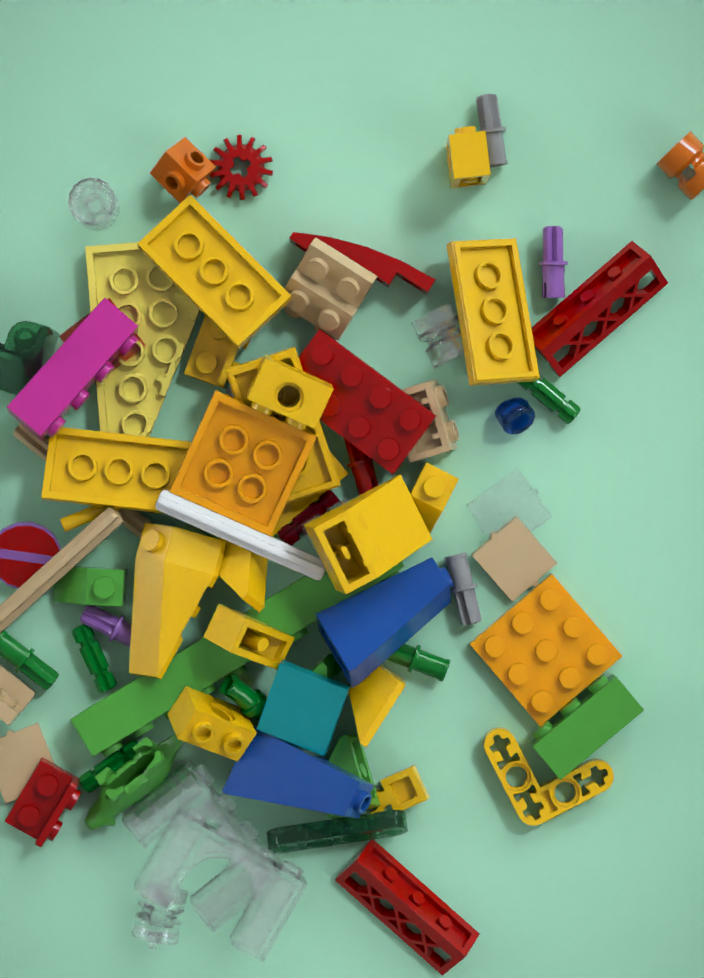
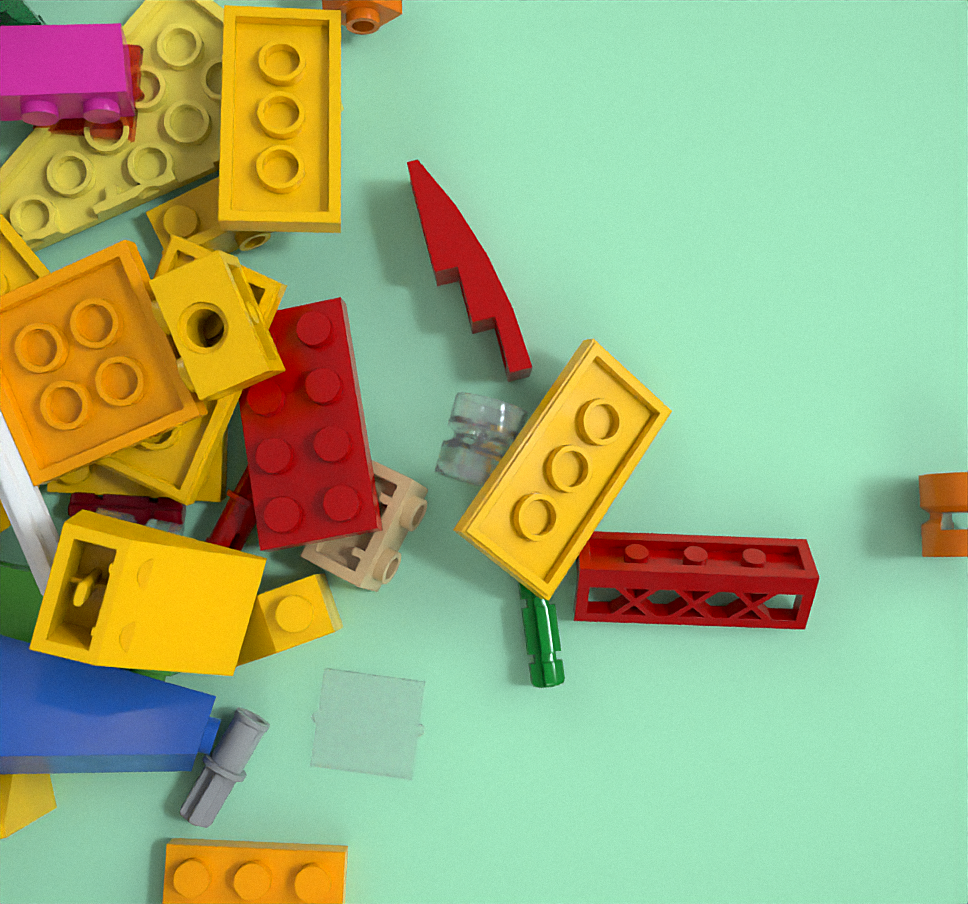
camera: 45 degrees right, 5 degrees down
(236, 181) = (444, 66): red gear -> none
(327, 289) = (395, 261): tan plate -> none
(421, 661) = (91, 812): green axle -> none
(467, 157) = (703, 259): yellow brick -> none
(491, 123) = (755, 264): light grey axle -> none
(514, 558) = (318, 788): tan piece -> none
(515, 415) = (479, 617): clear blue tile -> none
(553, 265) = (689, 479): medium lavender axle -> none

